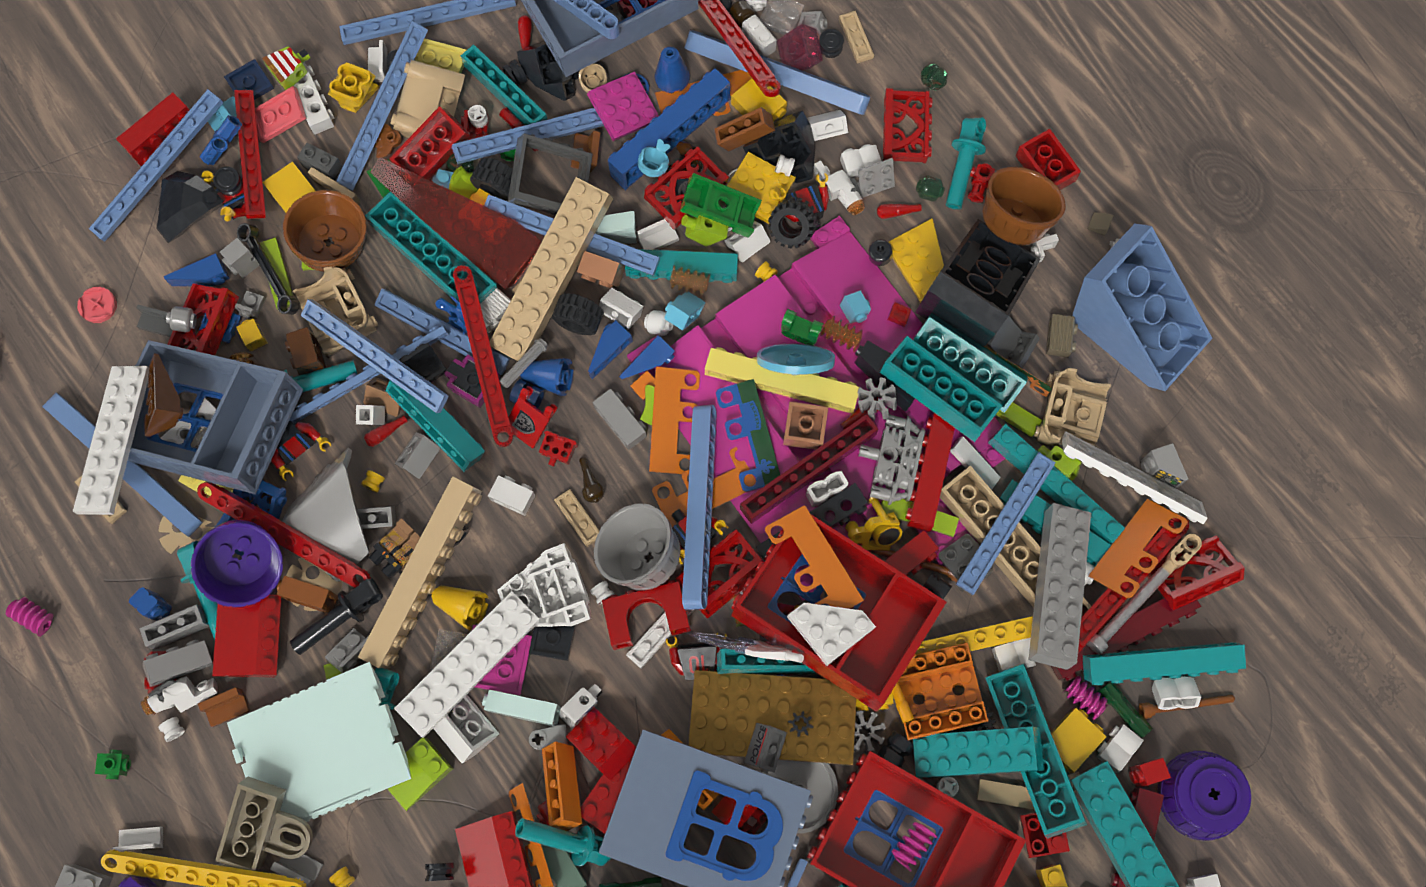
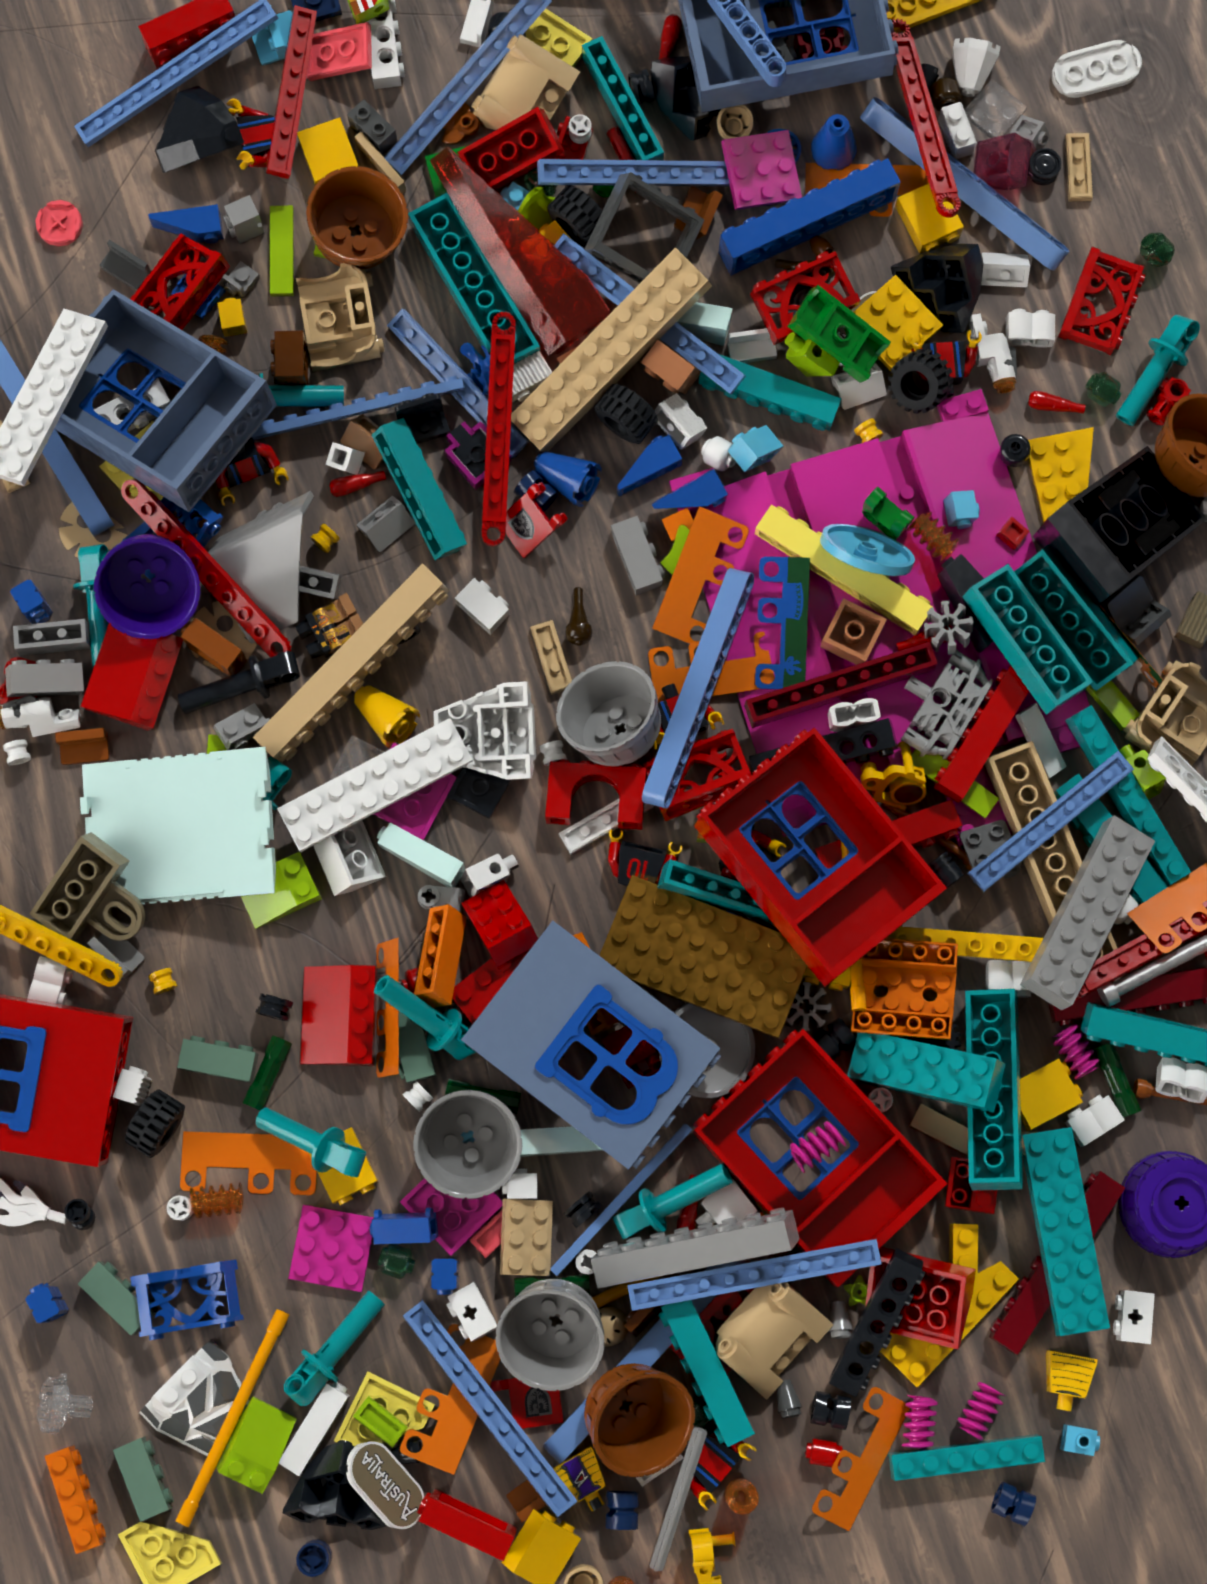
camera: 15 degrees right, 5 degrees up
(162, 400) = (113, 367): reddish brown wedge -> none
(181, 319) = (156, 274): light grey head -> none
(226, 133) = (270, 57): blue piece -> none
(228, 181) = (257, 119): black wheel -> none
(268, 269) = (273, 242): black piece -> none
(352, 87) = (438, 44): yellow piece -> none
(375, 356) = (371, 390): medium blue plate -> none
(539, 346) = (544, 452): light grey axle -> none
(559, 443) = (555, 560): red piece -> none
(654, 161) = (776, 253): medium azure hat -> none
(689, 280) = (771, 413): clear orange piece -> none
(744, 129) = (900, 246): dark orange brick -> none
(749, 647) = (703, 867): piece -> none
(765, 747) = (685, 986): dark grey panel -> none
(784, 165) = (933, 306): white wheel -> none
(797, 719) = (735, 980): black gear -> none
(823, 562) = (819, 798): orange piece -> none
(830, 628) = (801, 875): white plate -> none
(876, 178) = (1041, 356): light grey hinge -> none
(1149, 772) = (1117, 1157): red brick -> none

